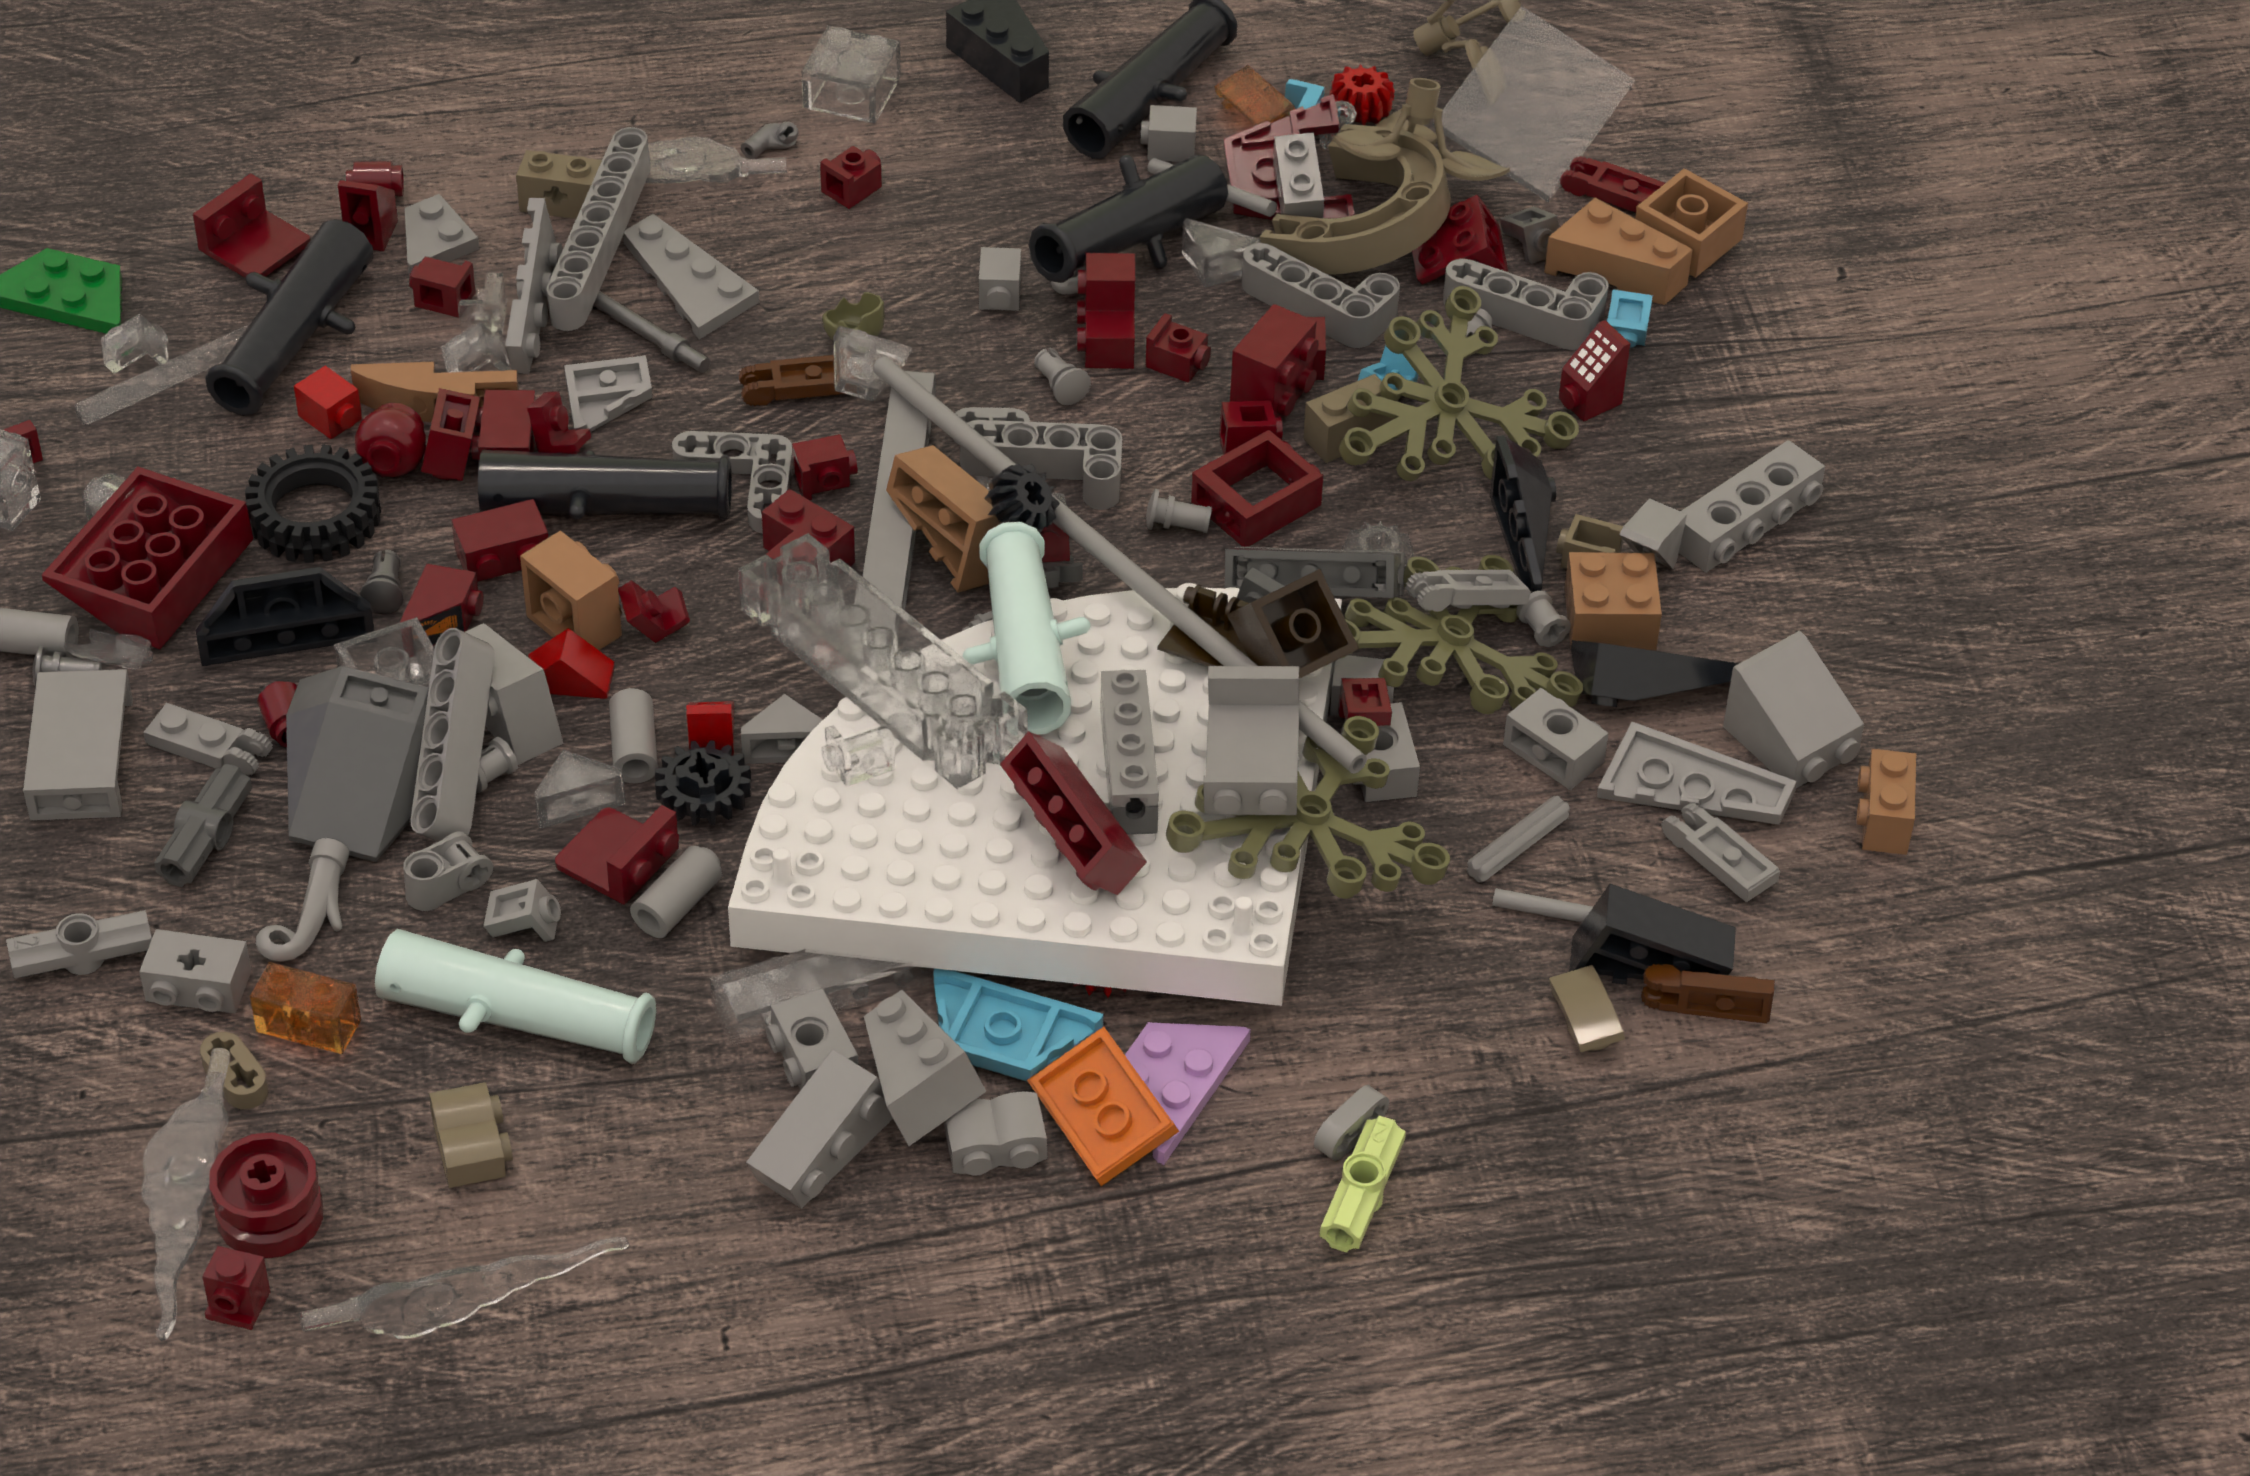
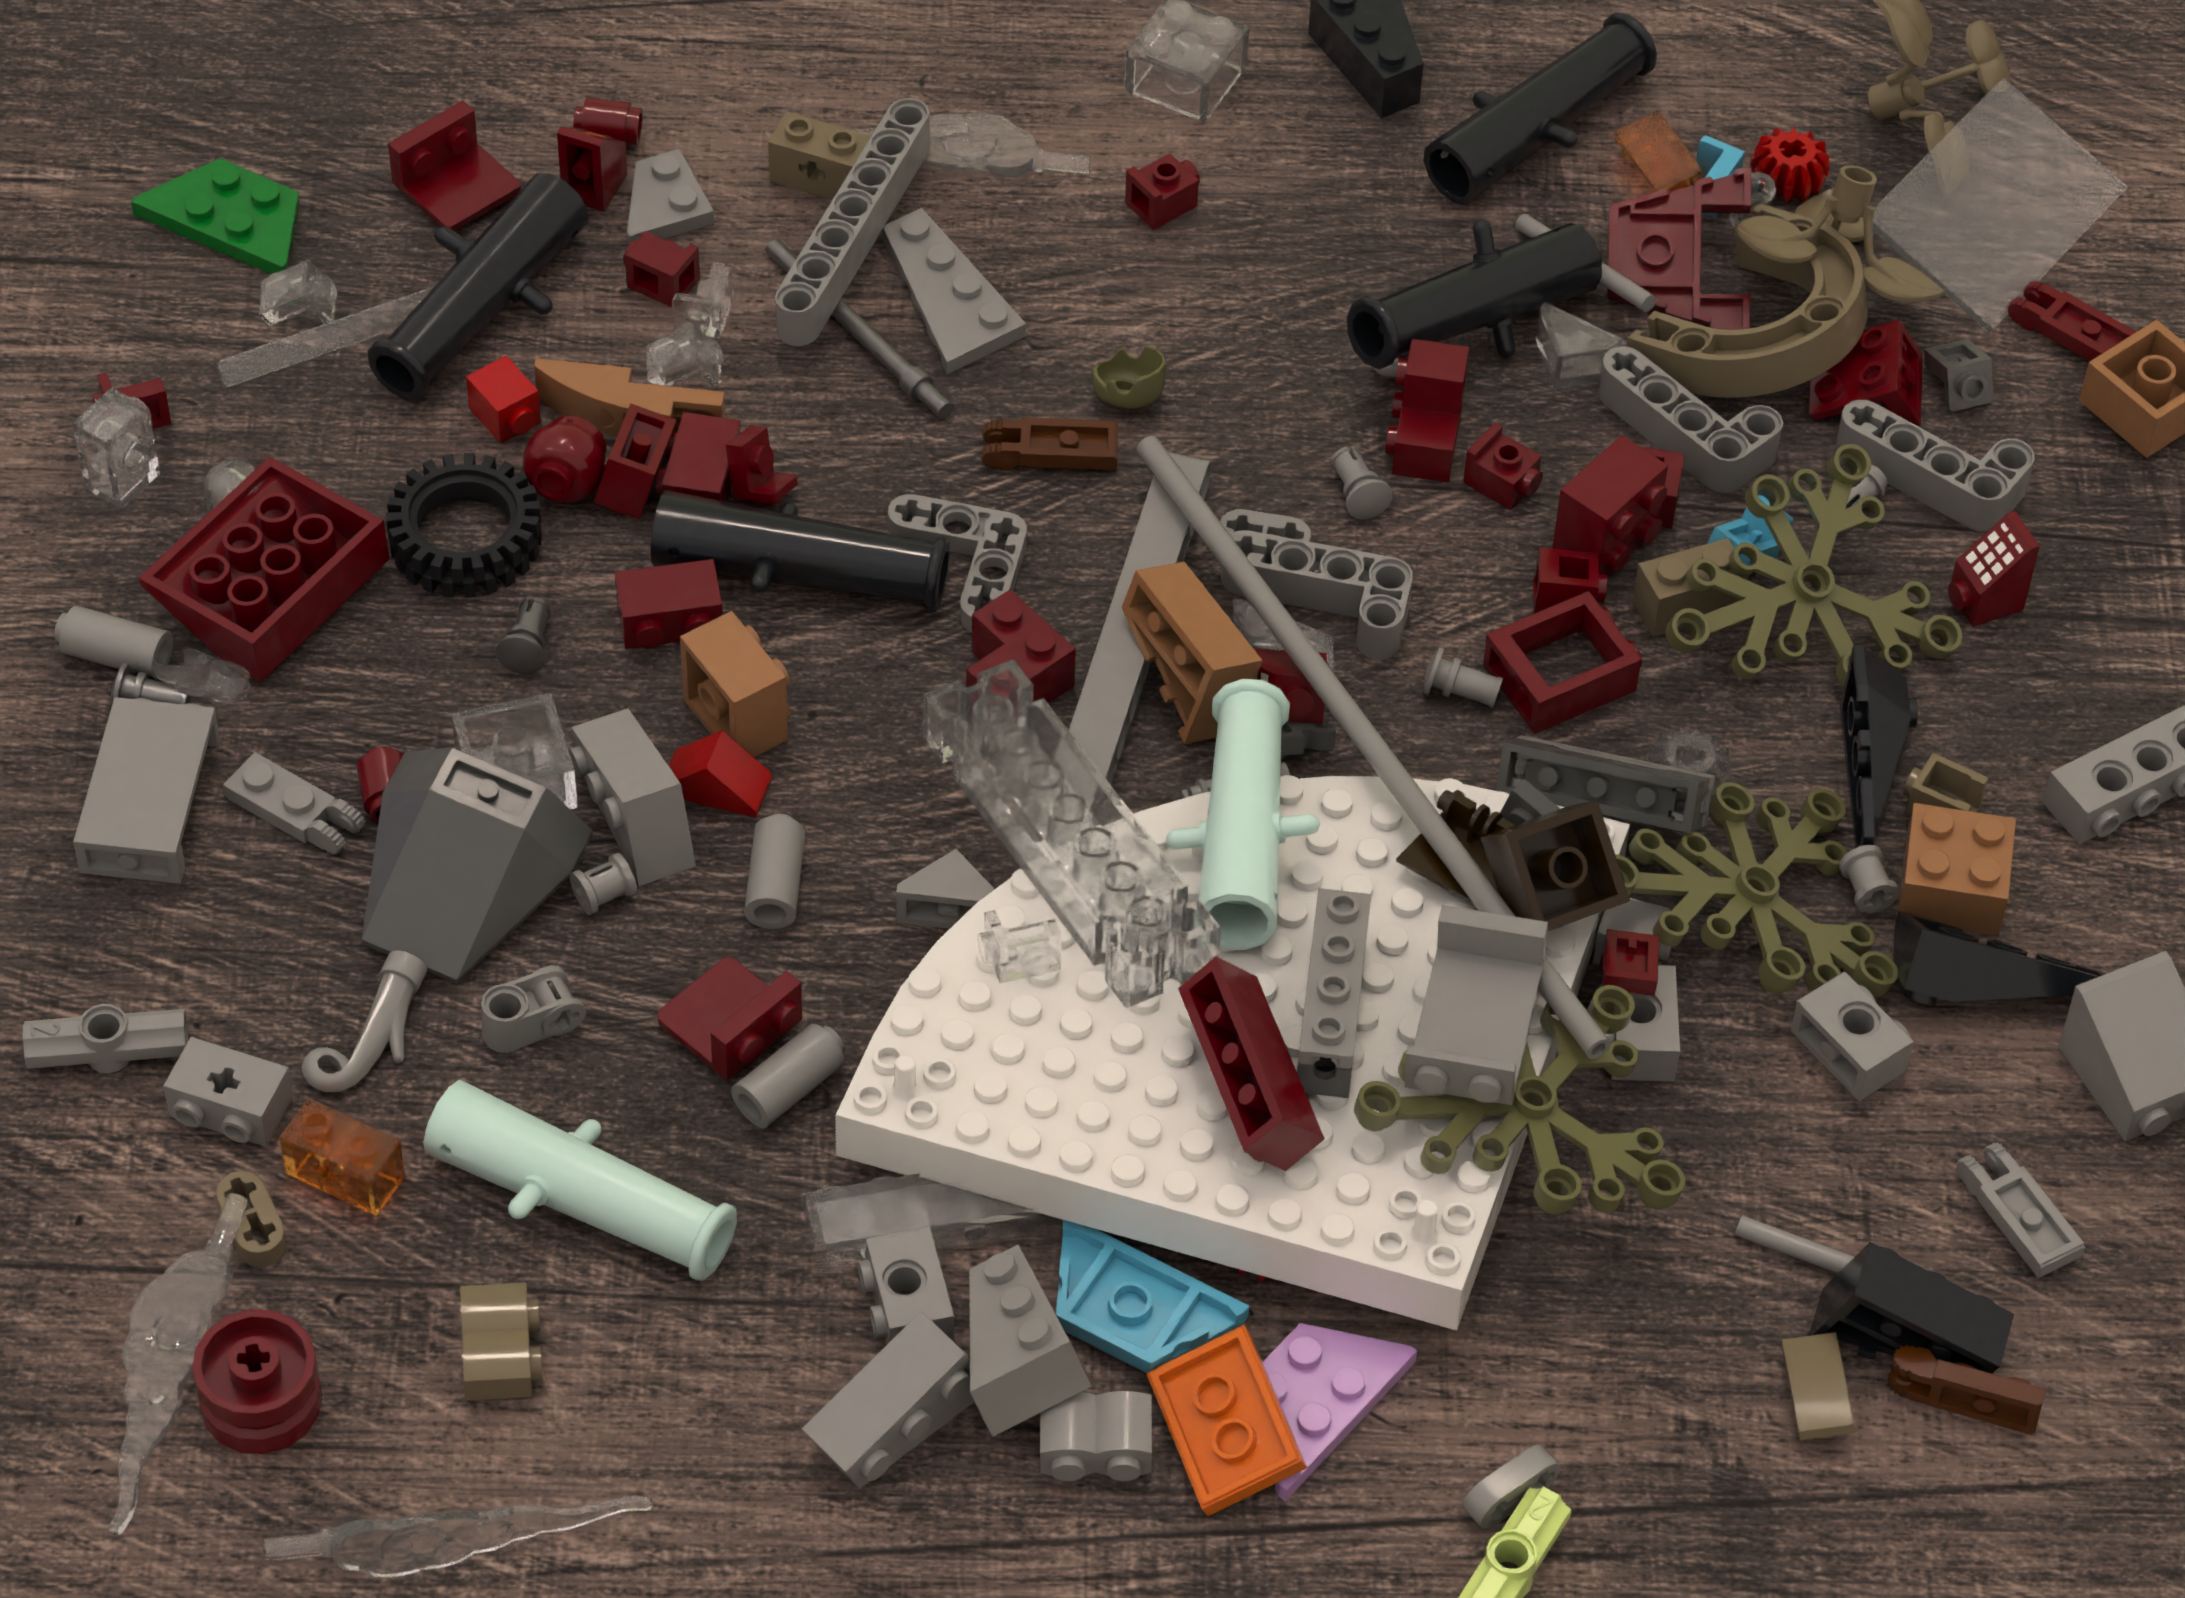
camera: 10 degrees right, 5 degrees up
(203, 825) = (269, 911): dark grey piece -> none
(235, 1287) = (204, 1488): dark red brick -> none
(281, 616) = (401, 667): black wedge -> none
(444, 600) = (588, 674): dark red slope -> none
(452, 735) = (564, 848): light grey beam -> none
(522, 908) = (609, 1070): light grey bracket -> none
(530, 309) = (756, 318): light grey wing -> none
(577, 789) = (698, 930): clear slope -> none
(606, 389) = (825, 427): light grey wing -> none
(651, 614) = (825, 722): dark red bracket -> none
(703, 782) = (869, 937): black gear -> none
(711, 722) = (866, 873): red slope -> none
(770, 137) = (1076, 125): flat silver arm -> none
(822, 465) = (1057, 560): dark red brick -> none
(855, 358) = (1119, 429): clear wing -> none
(999, 278) = (1311, 347): light grey brick -> none
(1022, 496) = (1272, 649): black gear -> none
(1170, 132) = (1550, 185): light grey brick -> none
(1298, 175) = (1688, 268): light grey brick -> none
(1466, 588) = (1782, 832): light grey hinge -> none
(1518, 839) = (1782, 1156): light grey axle -> none
(1621, 251) = (2058, 415): medium nougat wedge -> none
(1630, 315) = (2052, 502): medium azure bracket -> none
(1657, 531) = (2024, 789): light grey slope -> none
(1672, 773) = (1989, 1102): light grey wing -> none

